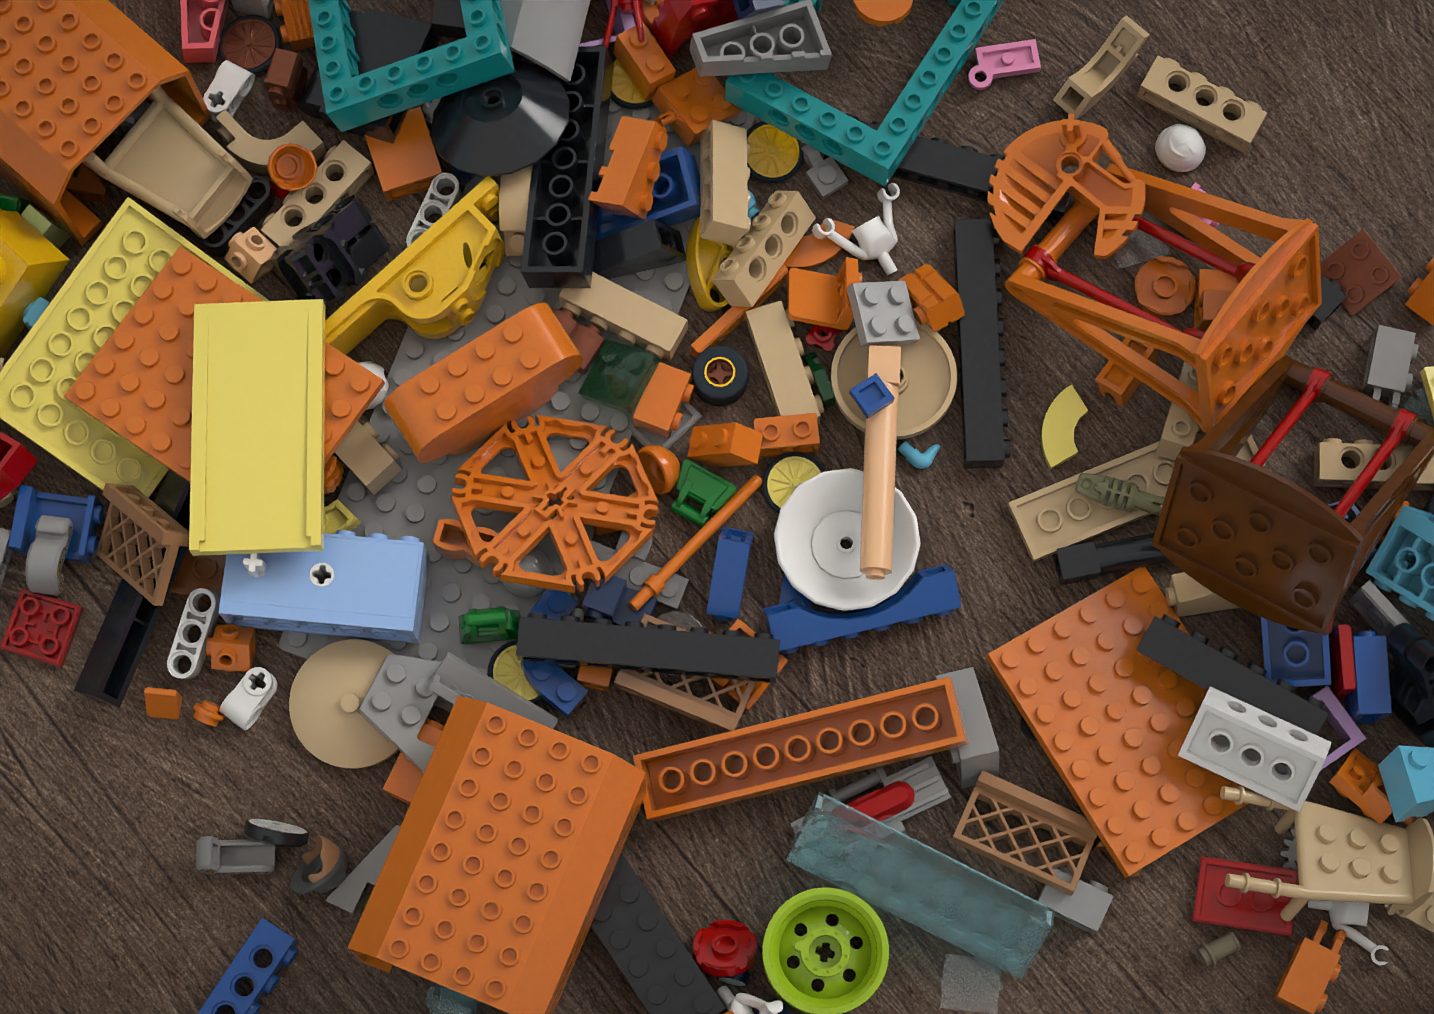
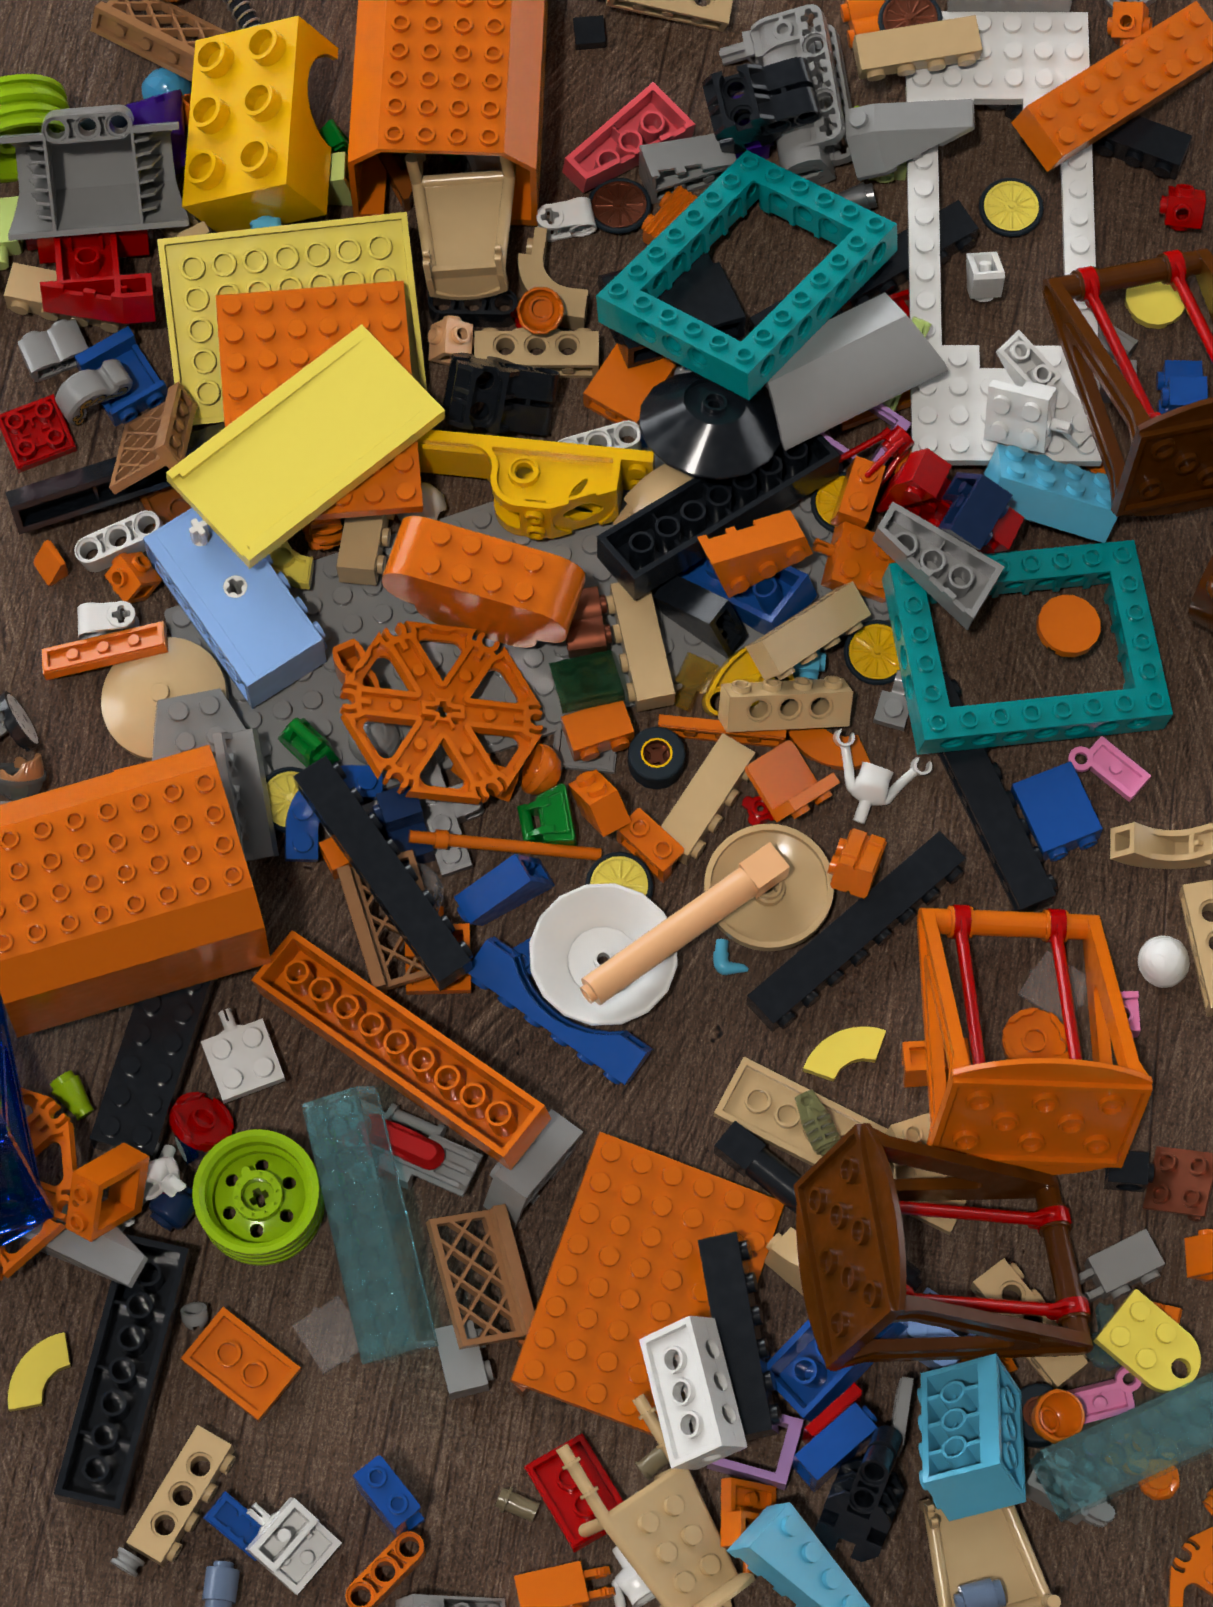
camera: 50 degrees right, 5 degrees down
(208, 713) = (69, 601): orange plate -> none
(274, 718) = (104, 650): none -> orange tile
(285, 79) = (608, 250): copper brick -> none
(681, 295) = (695, 676): none -> clear yellow plate
(698, 876) = (242, 1058): none -> white plate
(821, 380) = (721, 831): dark green tile -> none
(871, 395) = (728, 874): blue tile -> none
(883, 313) = (808, 833): light grey plate -> none
(1001, 118) = (1057, 811): none -> blue panel
(1033, 183) = (1021, 865): orange piece -> none
(1265, 822) = (652, 1463): none -> dark tan pin

